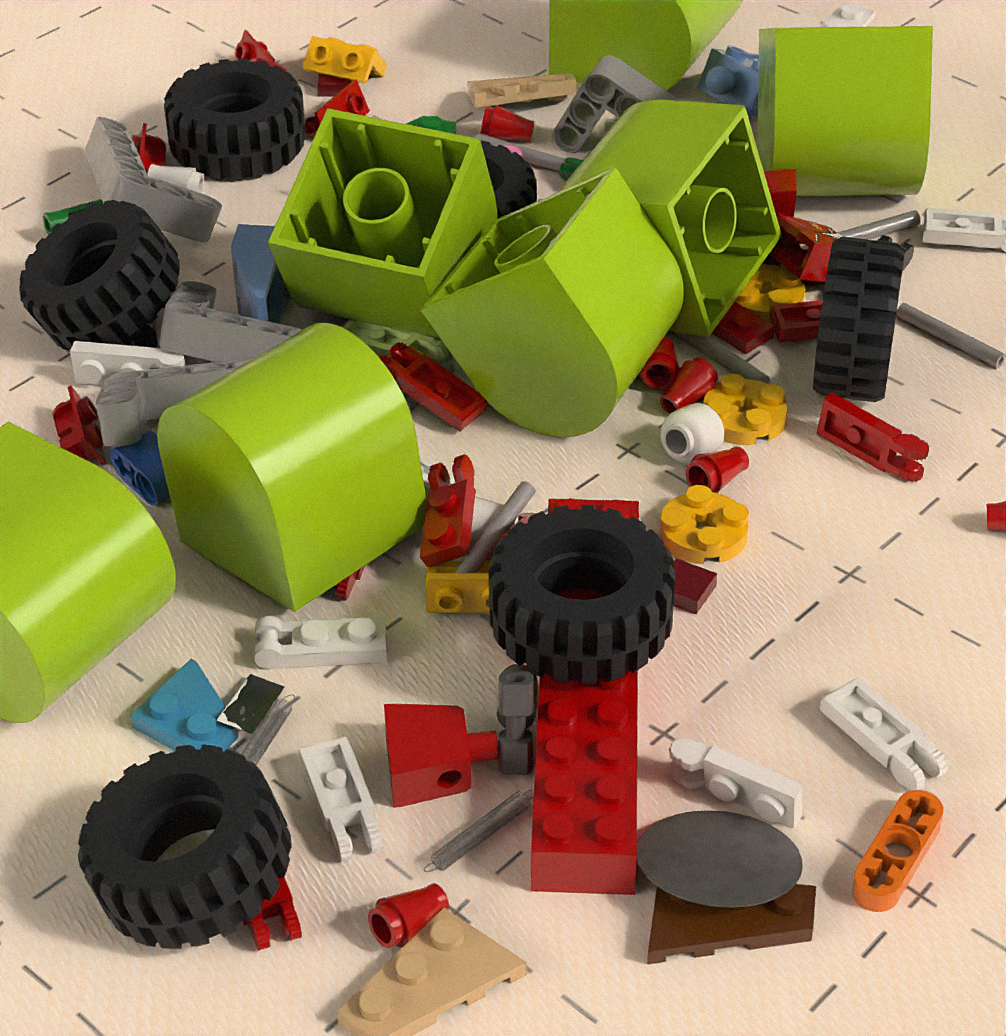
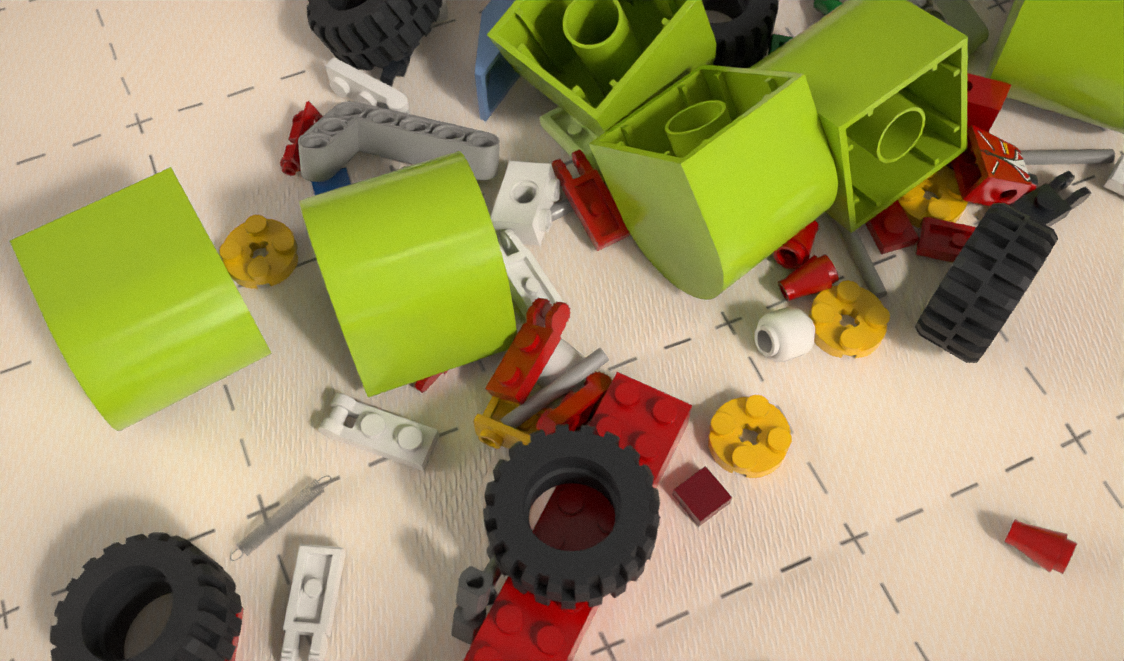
camera: 25 degrees right, 20 degrees up
(185, 712) = (244, 465): dark azure wing -> none
(199, 331) = (428, 84): light grey beam -> none
(250, 703) = (293, 475): black sticker -> none
(432, 751) = (399, 593): red torso -> none
(716, 468) = (786, 381): red cone -> none
(871, 439) = (944, 402): red hinge -> none
(951, 335) = (1079, 305): light grey piece -> none

